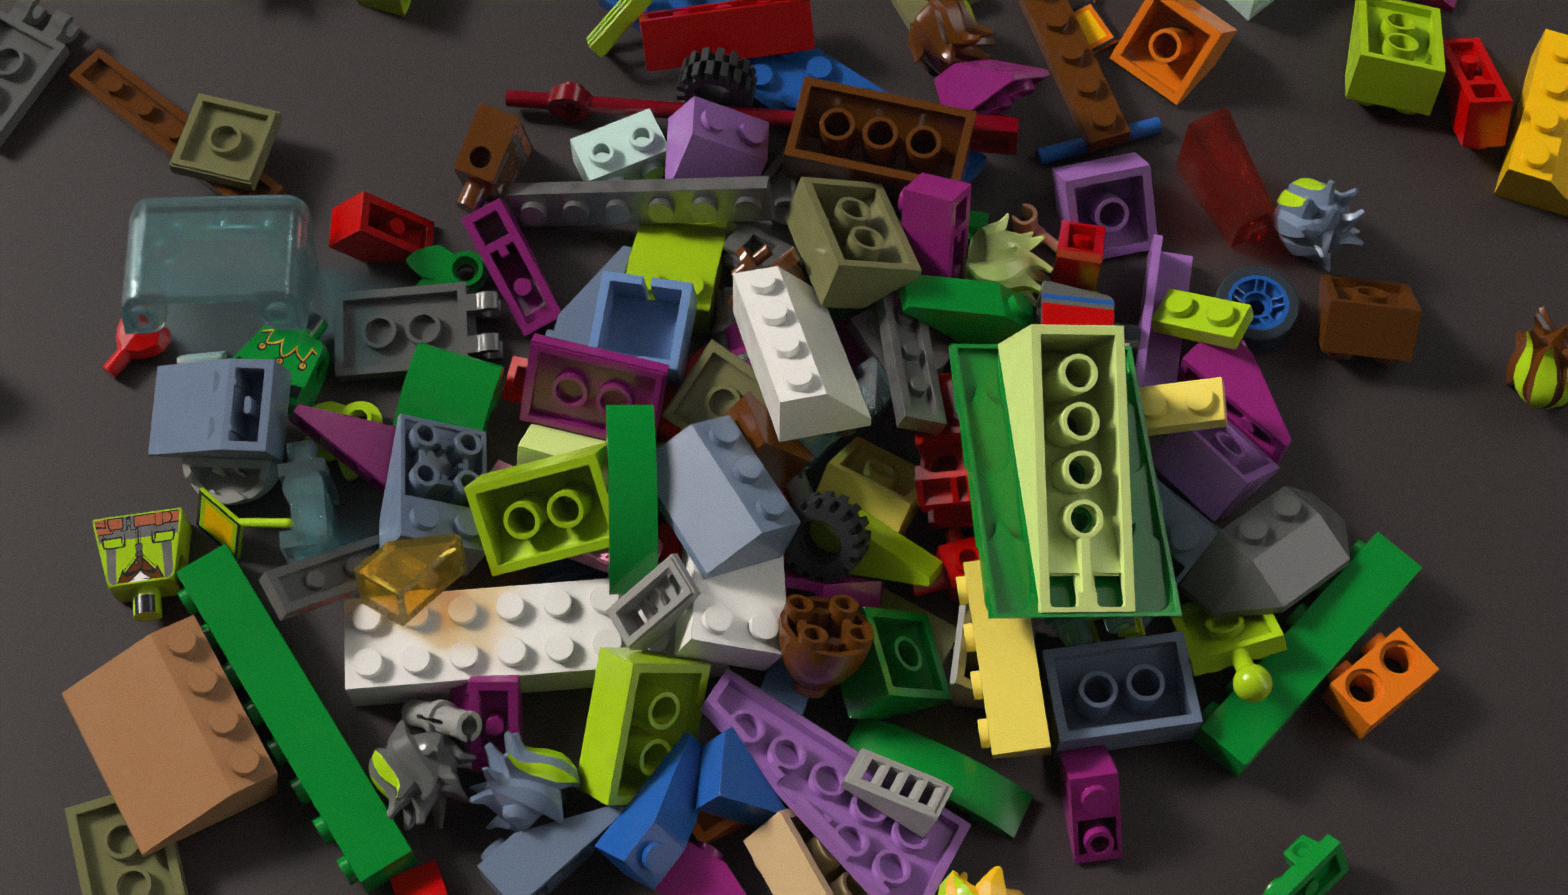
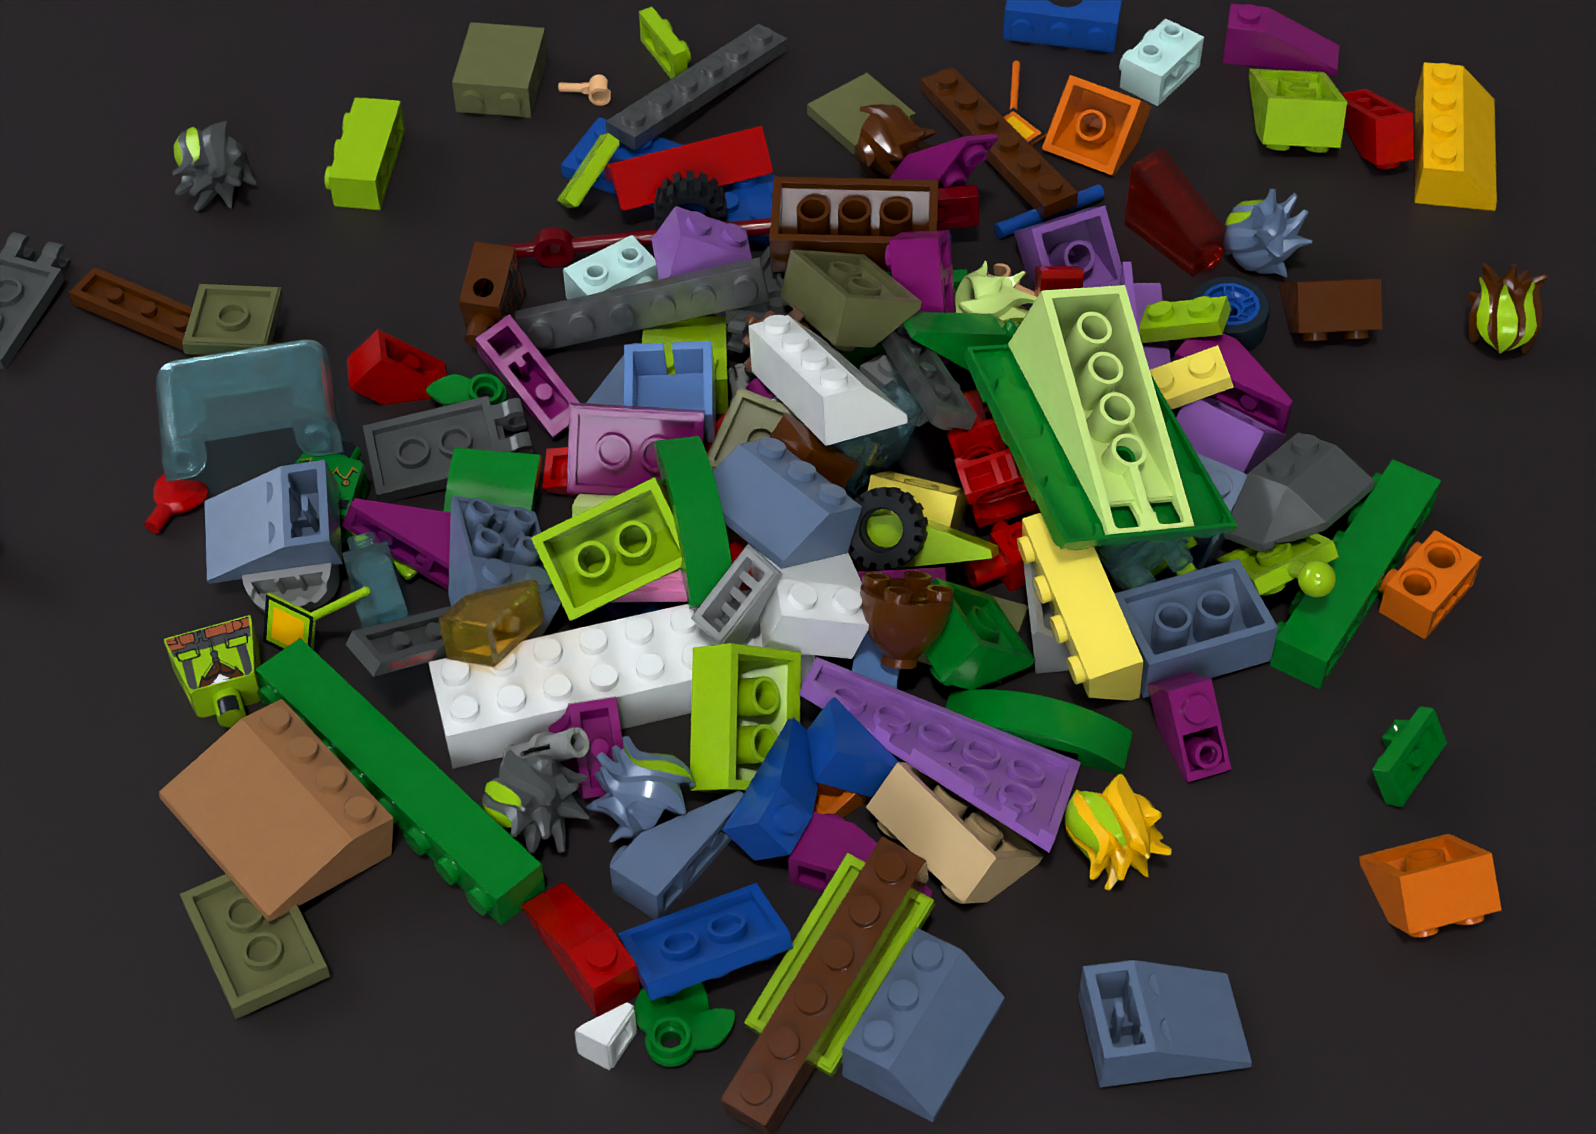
camera: 10 degrees left, 15 degrees down
(903, 809) = (1006, 734): light grey slope -> none

